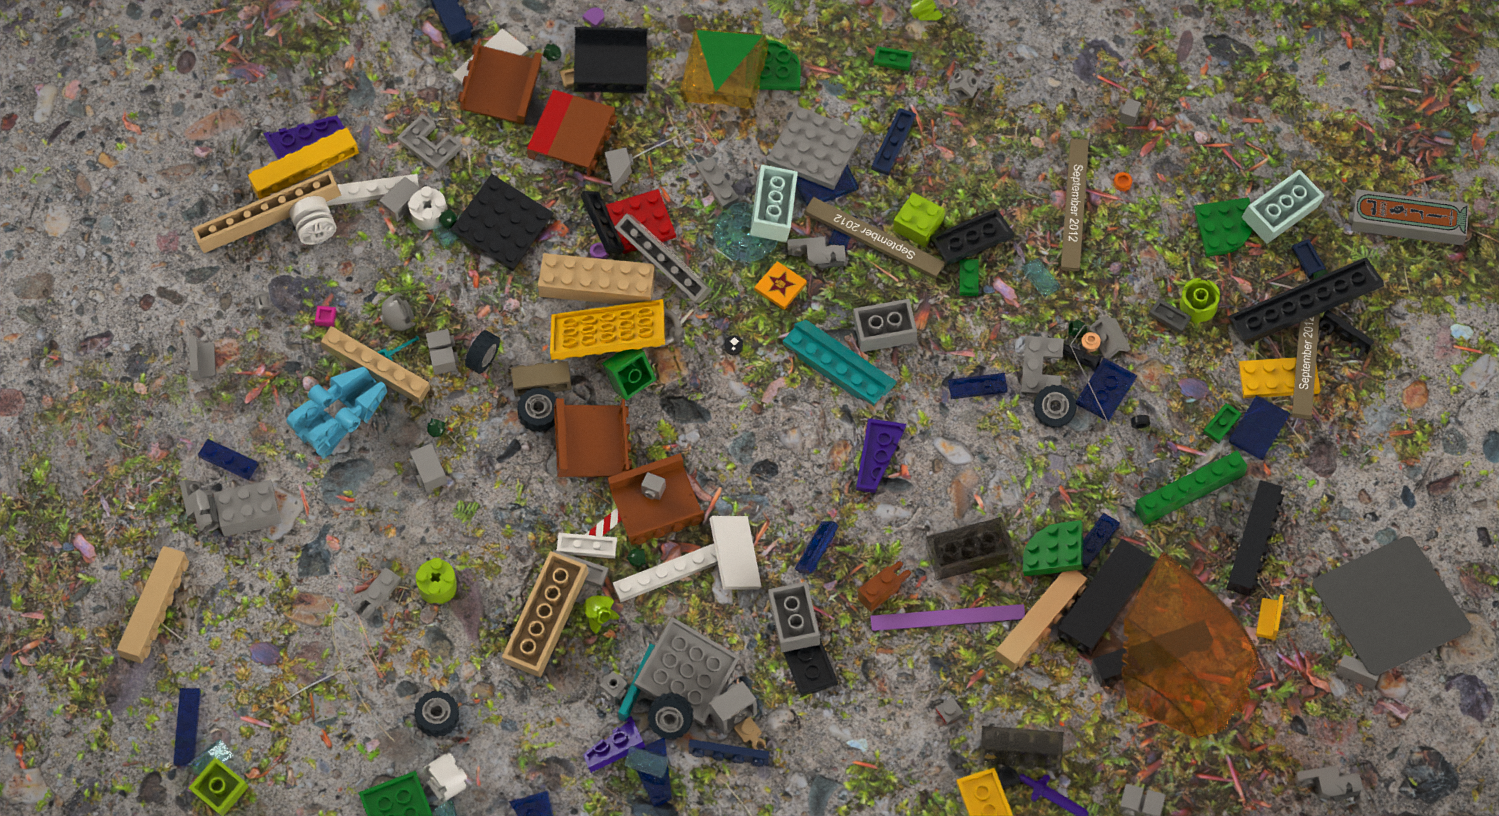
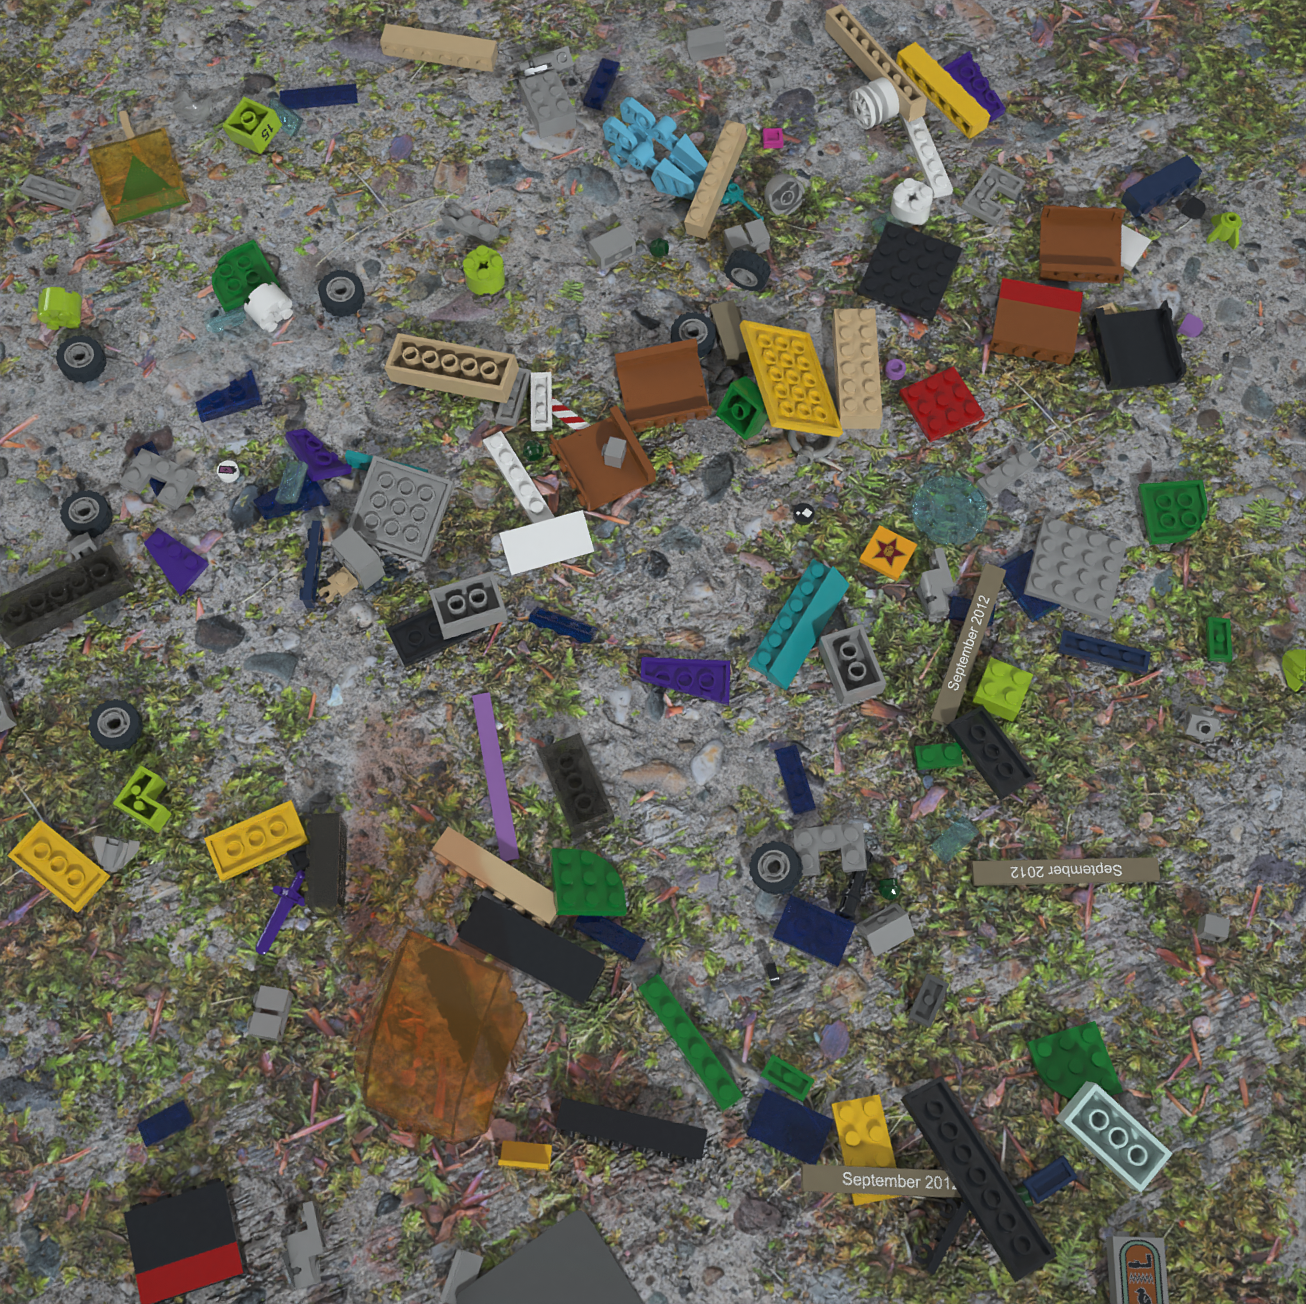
camera: 80 degrees right, 5 degrees up
(398, 198) = (919, 172): light grey panel -> none
(447, 218) = (901, 217): dark green plate -> none
(552, 52) = (1133, 289): dark green plate -> none
(599, 611) = (465, 419): lime brick -> none
(602, 222) = (929, 364): black plate -> none
(613, 693) = (378, 443): light grey brick -> none
(618, 166) = (1001, 371): light grey slope -> none
(663, 258) = (891, 423): light grey brick -> none
(670, 727) = (345, 498): black wheel -> none
(724, 68) = (1154, 456): clear yellow tile -> none
(773, 203) = (985, 526): light aqua brick -> none
(882, 586) = (520, 696): dark orange hinge -> none
(949, 711) = (378, 787): light grey plate -> none
(1091, 341) = (873, 904): light nougat plate -> none
(1122, 181) = (1111, 928): orange tile -> none
(1144, 478) = (691, 980): light grey piece -> none
(1200, 299) = (966, 1042): lime brick -> none

